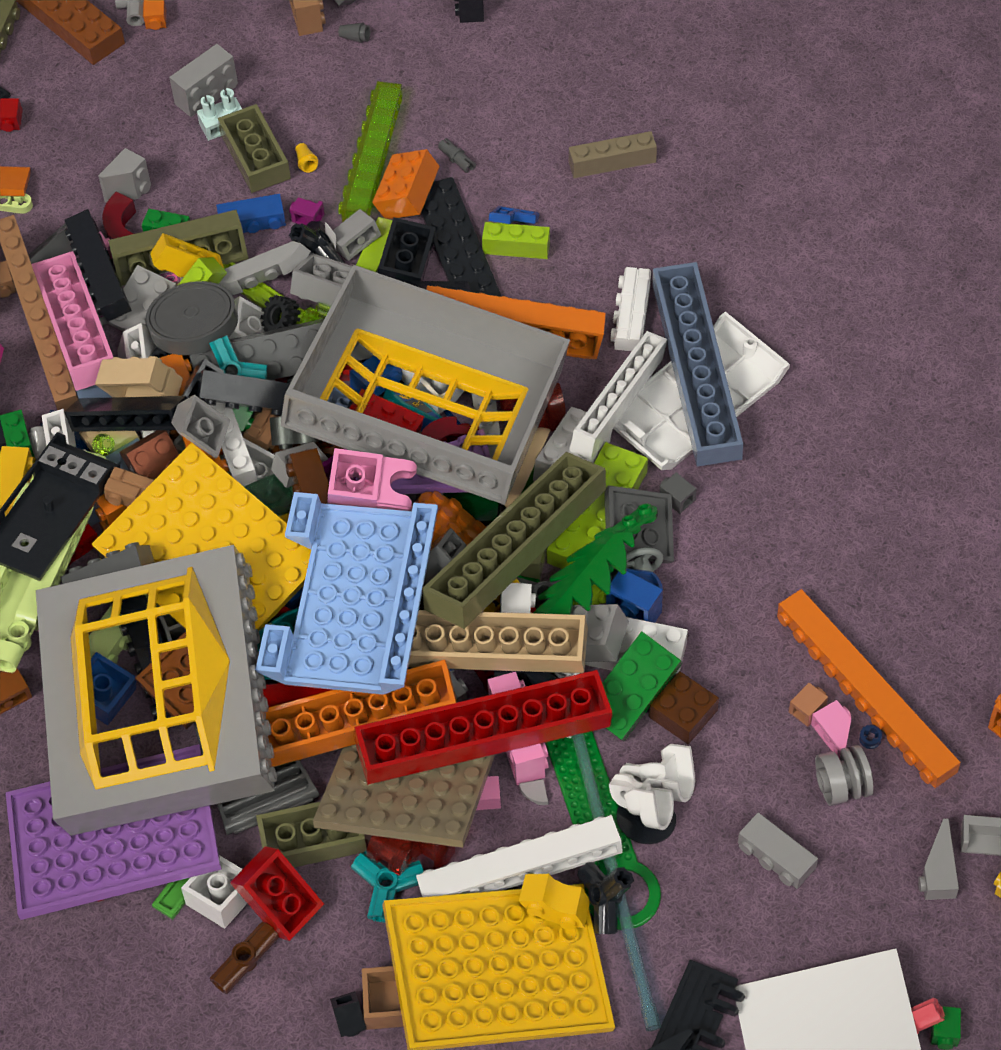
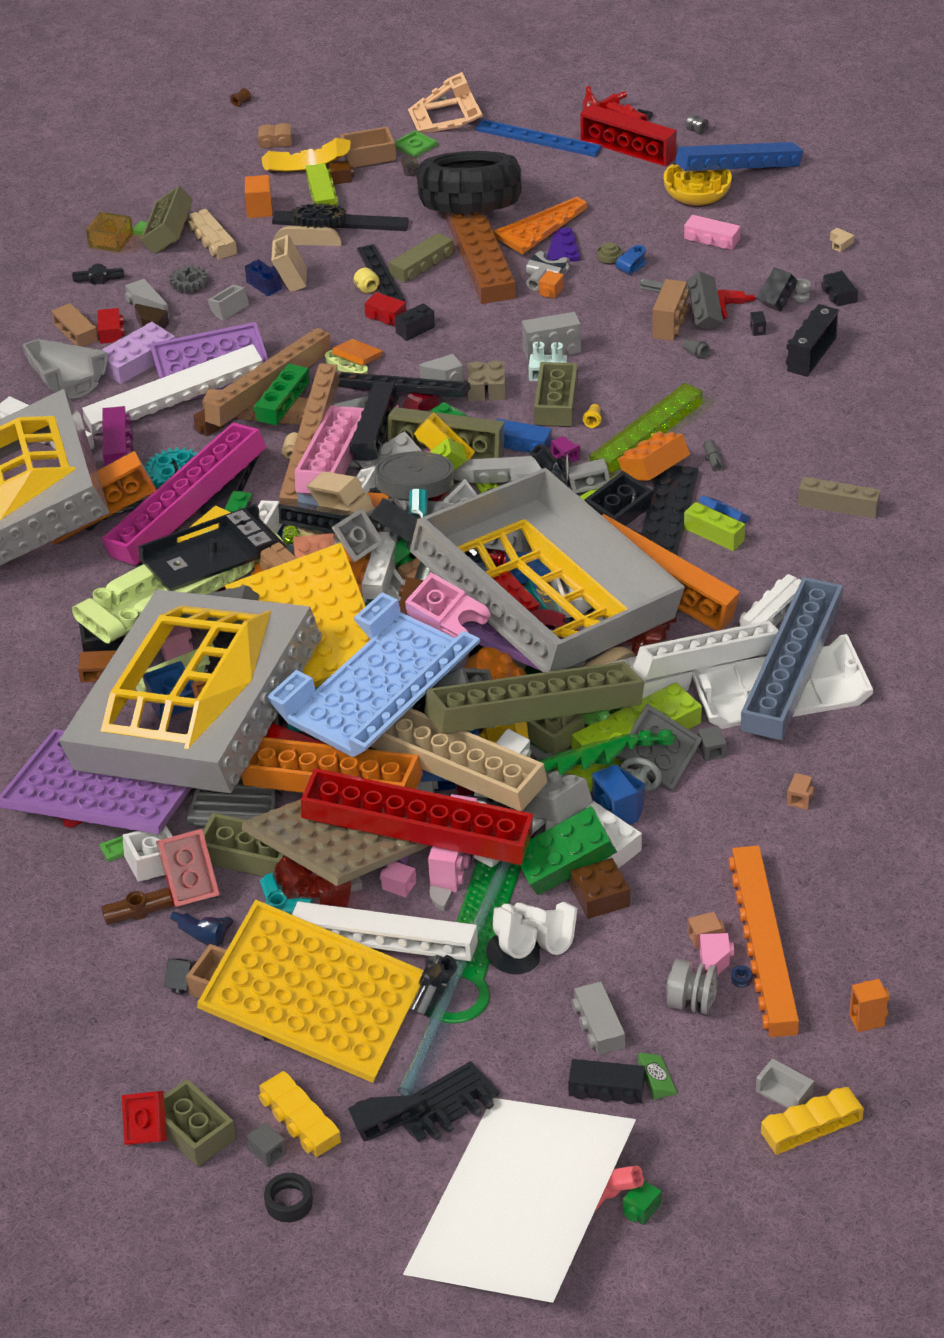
camera: 30 degrees right, 15 degrees down
(17, 328) = (288, 445): none -> tan brick
(42, 118) = (415, 322): none -> black brick
(94, 202) = (405, 384): none -> black tile
(164, 159) = (486, 374): none -> dark tan piece
(338, 950) = (207, 930): none -> dark blue animal
(554, 901) = (389, 965): yellow brick -> none
(793, 507) = (800, 791): none -> nougat brick
(829, 915) = (606, 1081): none -> black brick
(865, 884) = (656, 1075): none -> bright green slope
(939, 873) = (726, 1088): light grey slope -> none

